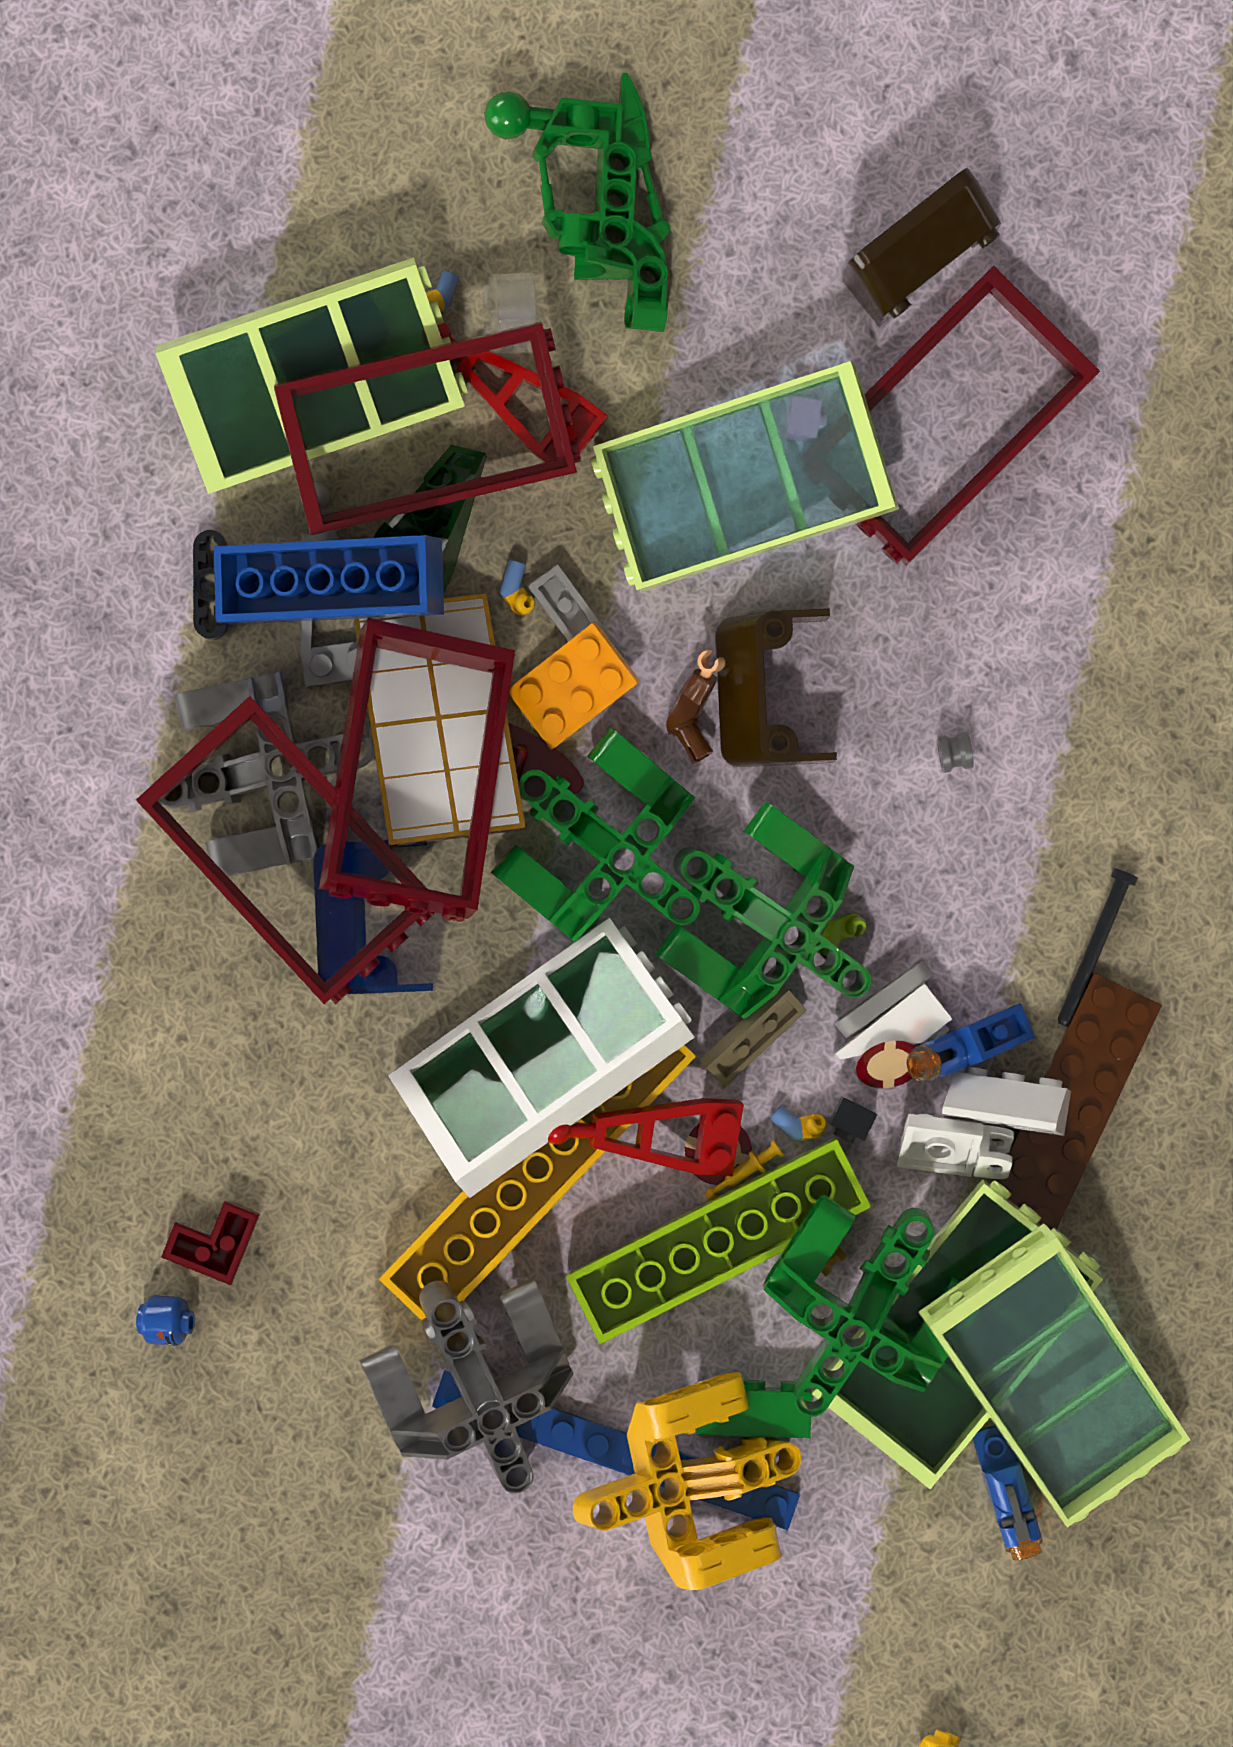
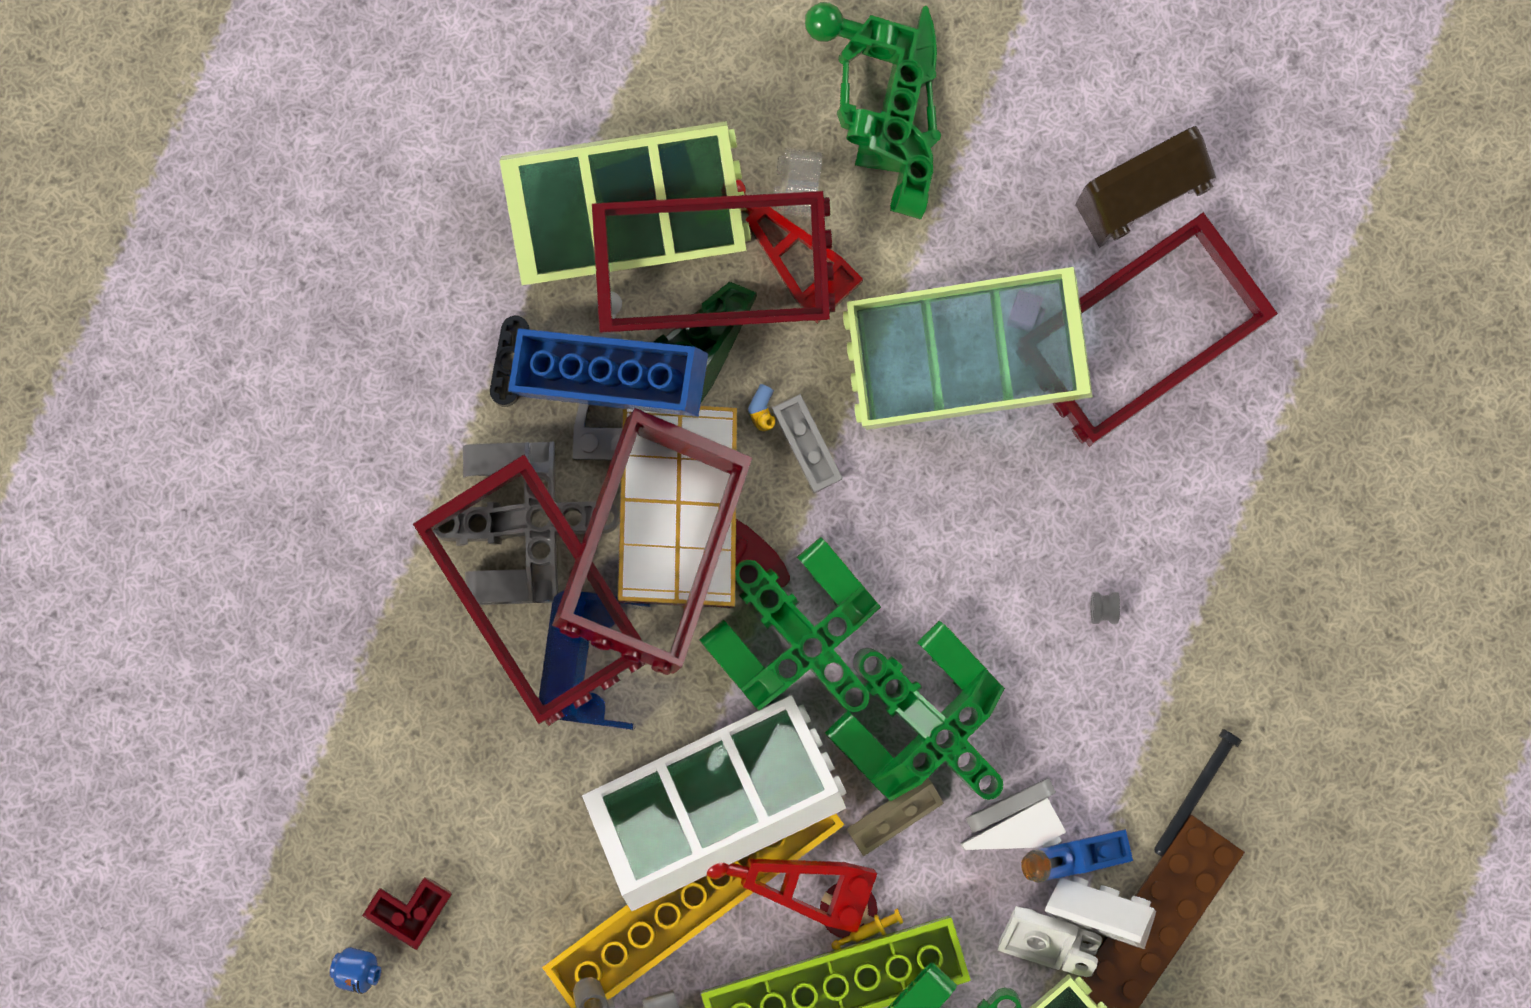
camera: 15 degrees right, 5 degrees down
(444, 291) = (747, 154): medium blue arm -> none
(573, 685) = (795, 496): light orange plate -> none
(688, 706) = (889, 529): reddish brown arm -> none
(741, 690) = (935, 527): dark brown windscreen -> none
(799, 1128) = (921, 902): arm -> none
(842, 929) = (986, 739): lime arm -> none
(851, 1120) = (966, 903): black plate -> none
(885, 1064) = (1002, 861): sticker -> none

